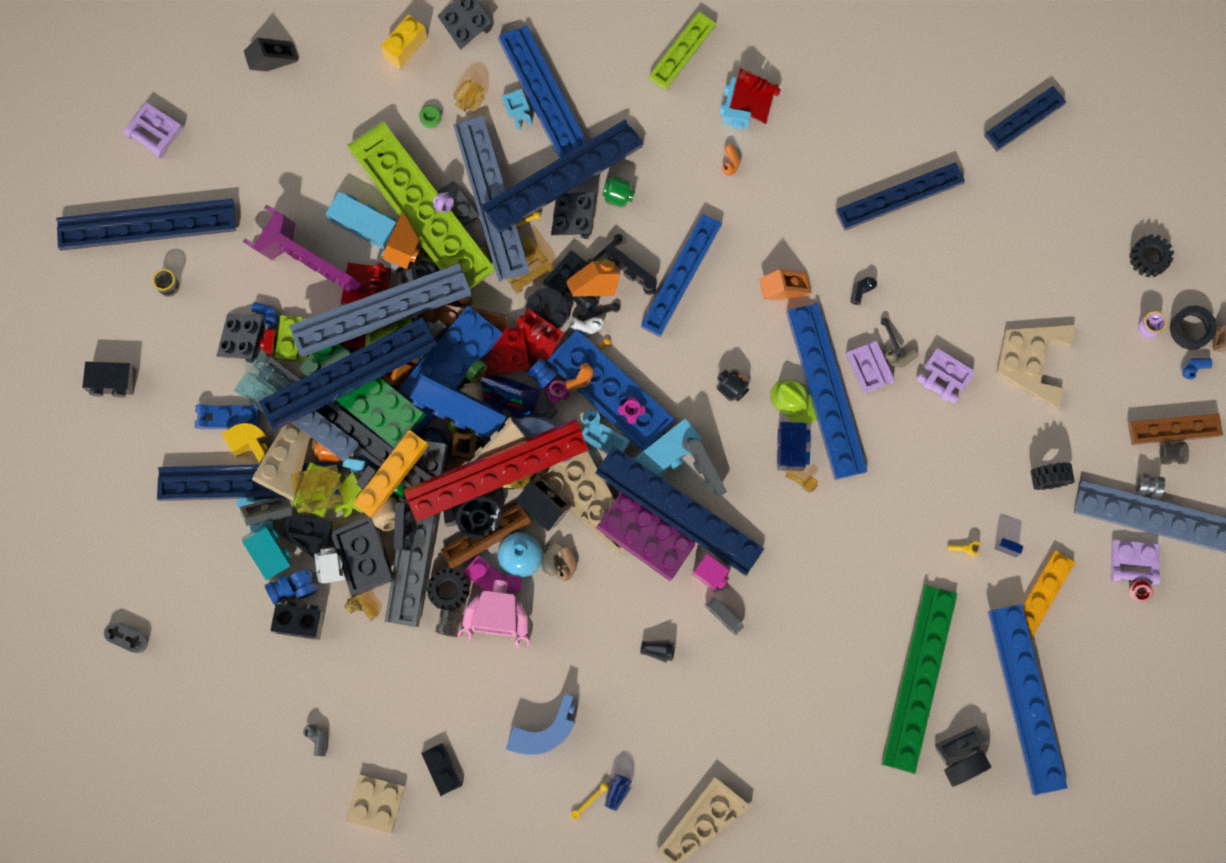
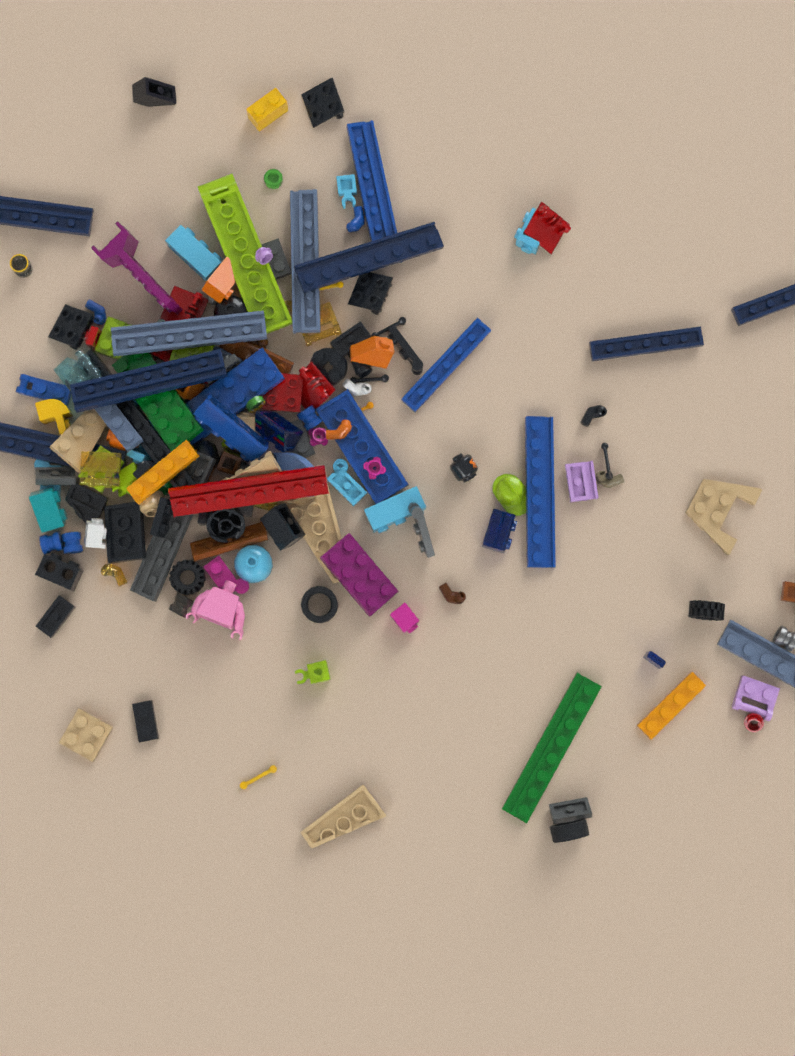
camera: 10 degrees right, 5 degrees up
(157, 124) = (46, 129): lavender plate -> none
(305, 674) = (55, 616): none -> black plate
(318, 737) = (53, 670): dark grey arm -> none
(469, 95) = (309, 169): clear yellow head -> none
(538, 140) = (358, 221): none -> blue arm
(541, 742) = (223, 719): medium blue arch -> none
(548, 559) = (274, 576): dark tan arm -> none
(569, 565) = (290, 583): medium nougat arm -> none
(614, 565) = (315, 590): none -> black tyre
(617, 791) = (282, 775): clear blue cone -> none
(618, 191) = (412, 281): green head -> none
(626, 660) = (316, 672): none -> lime brick
(660, 650) = (346, 670): black cone -> none
(679, 511) = (391, 561): dark blue plate -> none
(682, 51) = (497, 174): lime plate -> none
(724, 615) = (405, 655): dark grey beam -> none
(732, 162) = (515, 278): orange arm -> none
(758, 535) = (451, 596): none -> reddish brown arm
(784, 285) = (529, 395): orange slope -> none
(808, 485) = (504, 566): clear yellow hand -> none
(949, 370) = (646, 500): lavender plate -> none
(965, 548) = (619, 651): yellow hand -> none
(1027, 699) = (634, 787): blue plate -> none

